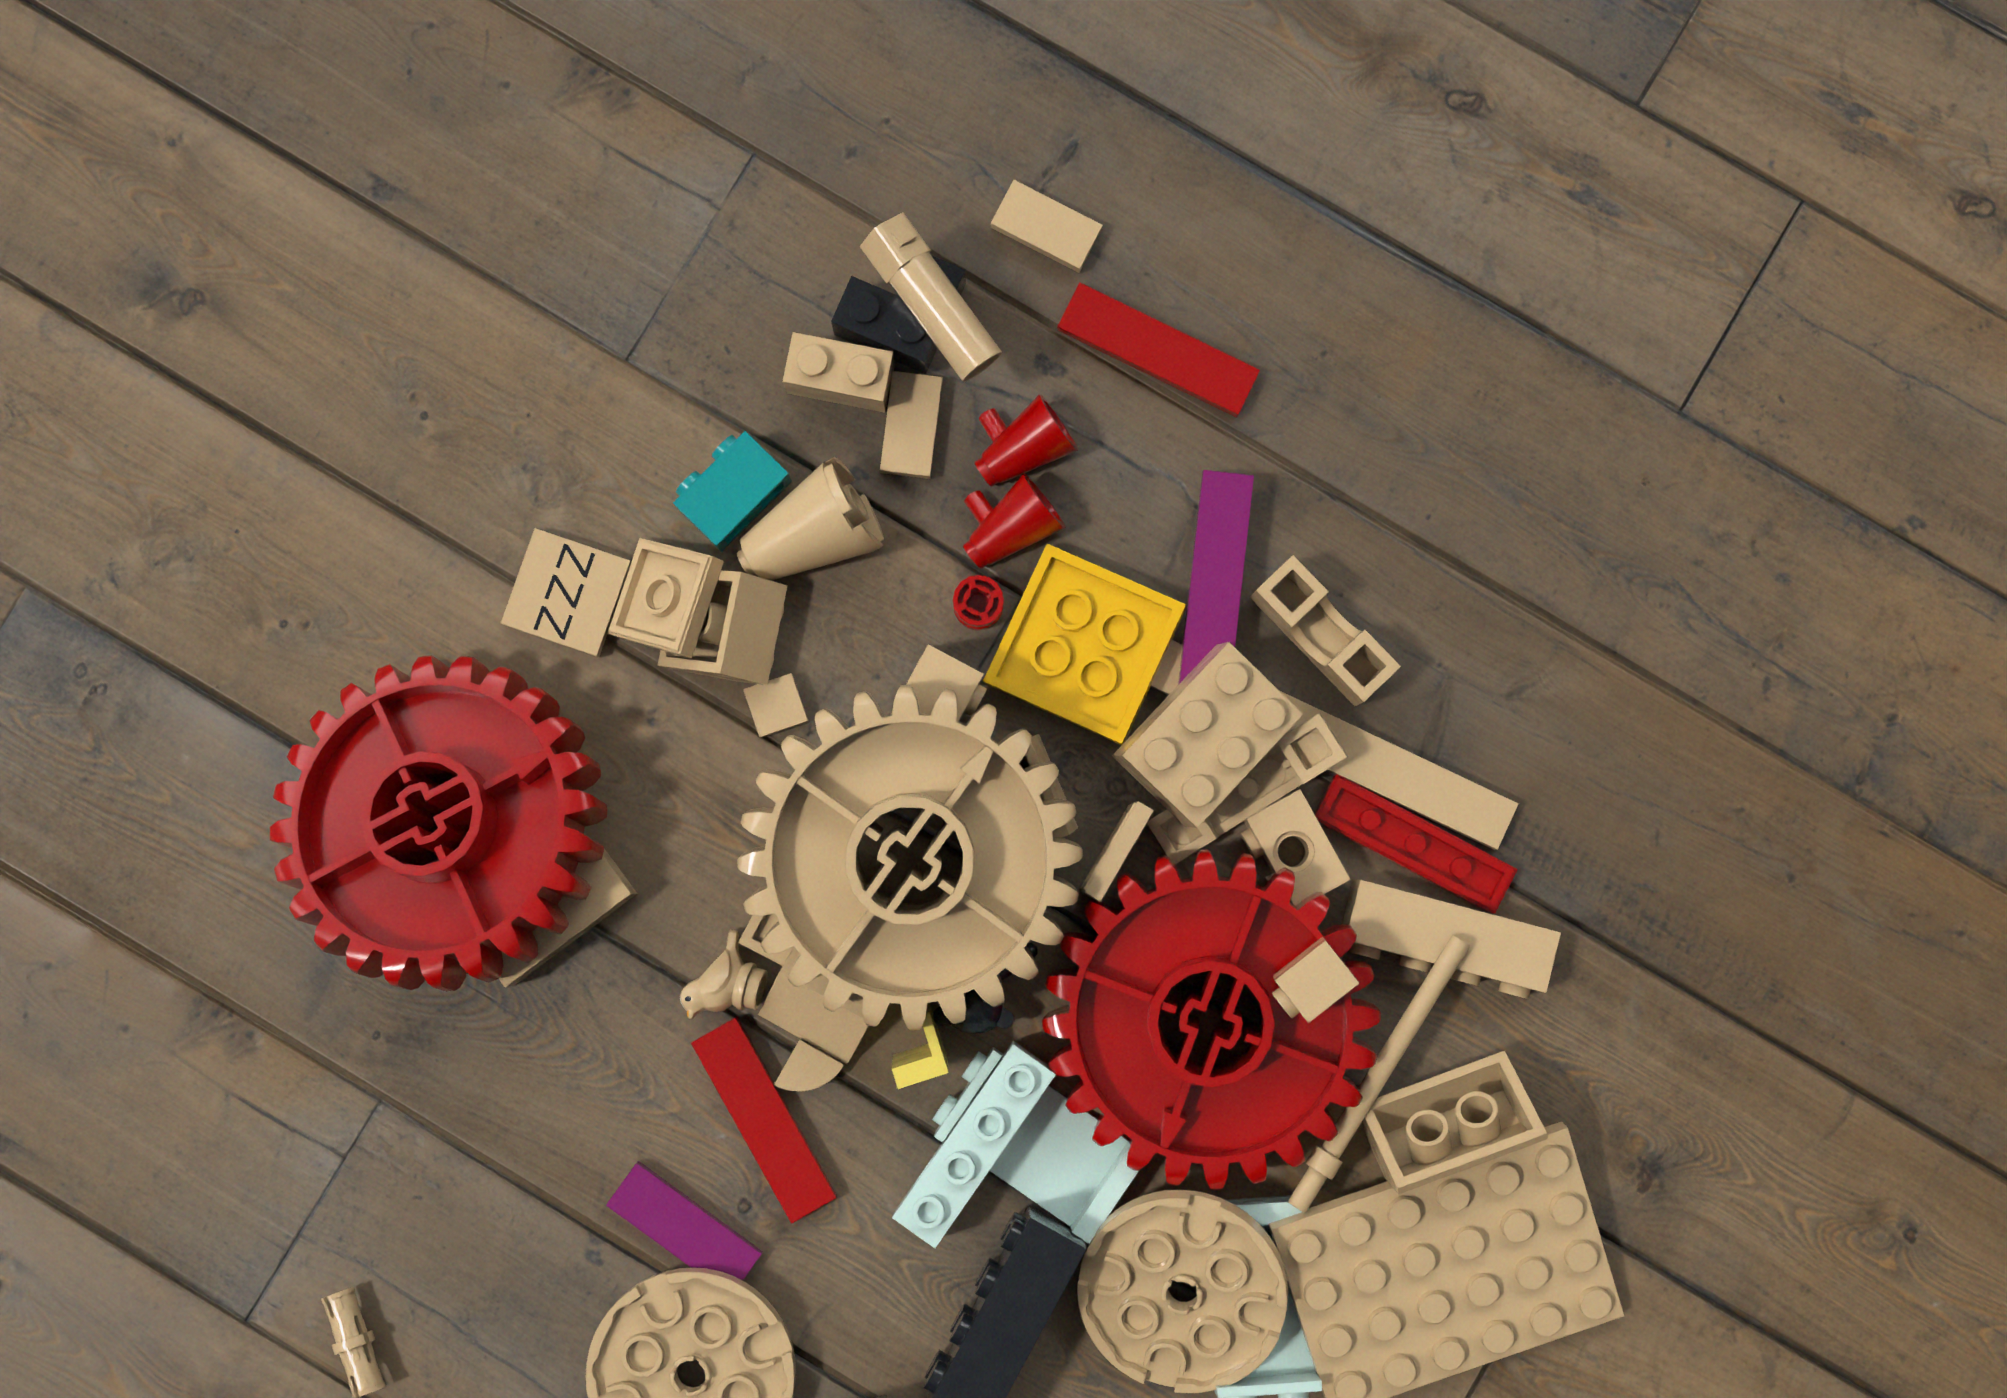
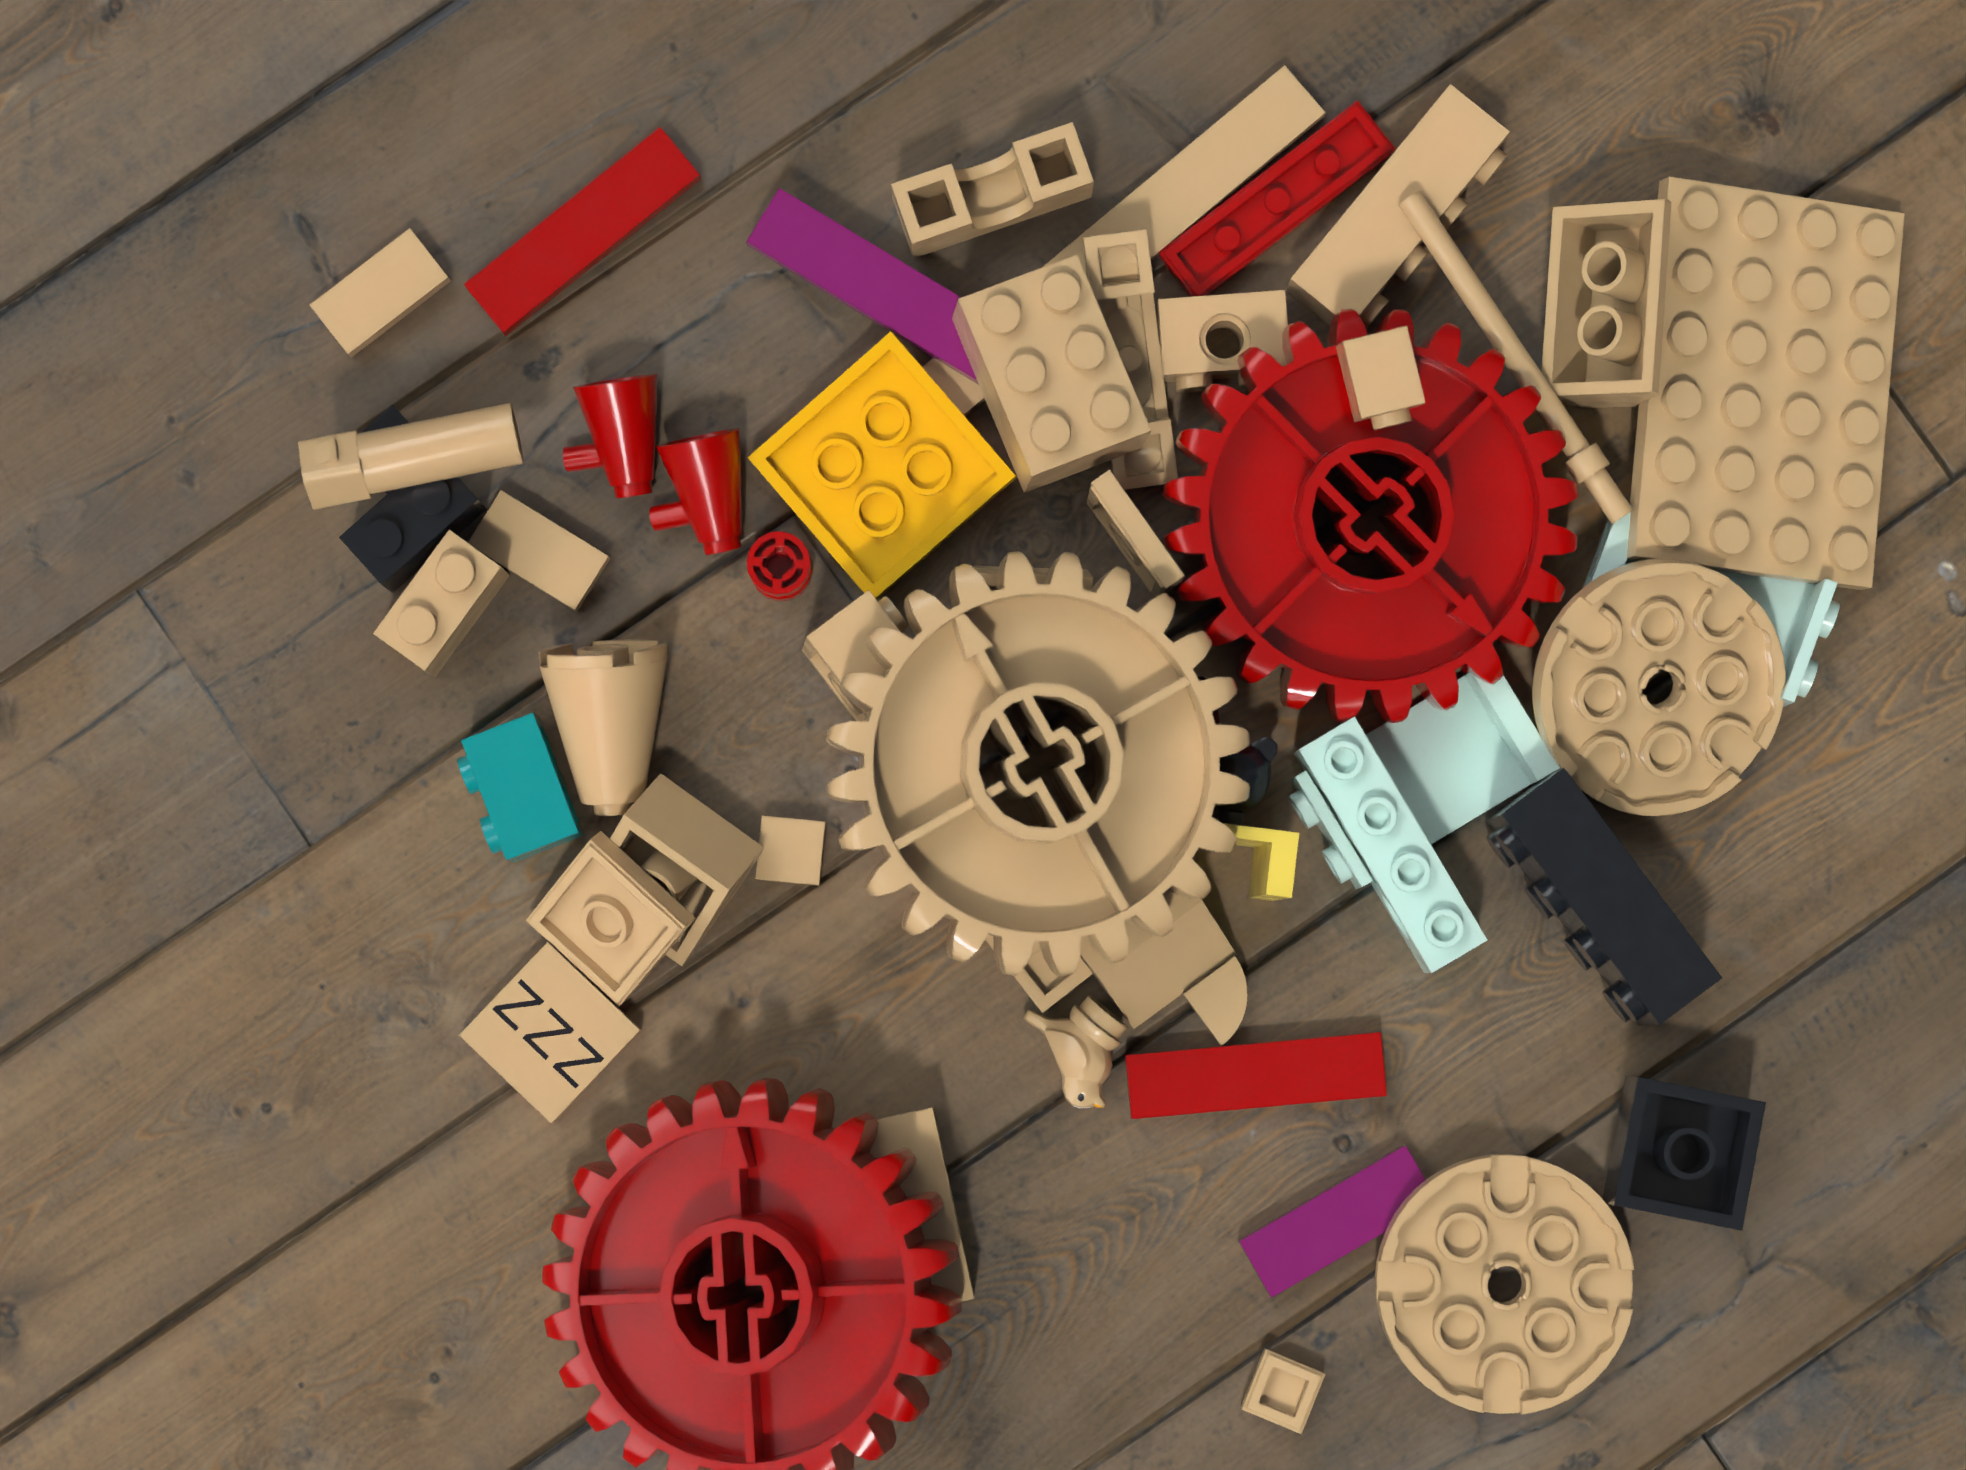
camera: 60 degrees left, 0 degrees up
(542, 1244) = (1282, 1390): none -> tan tile

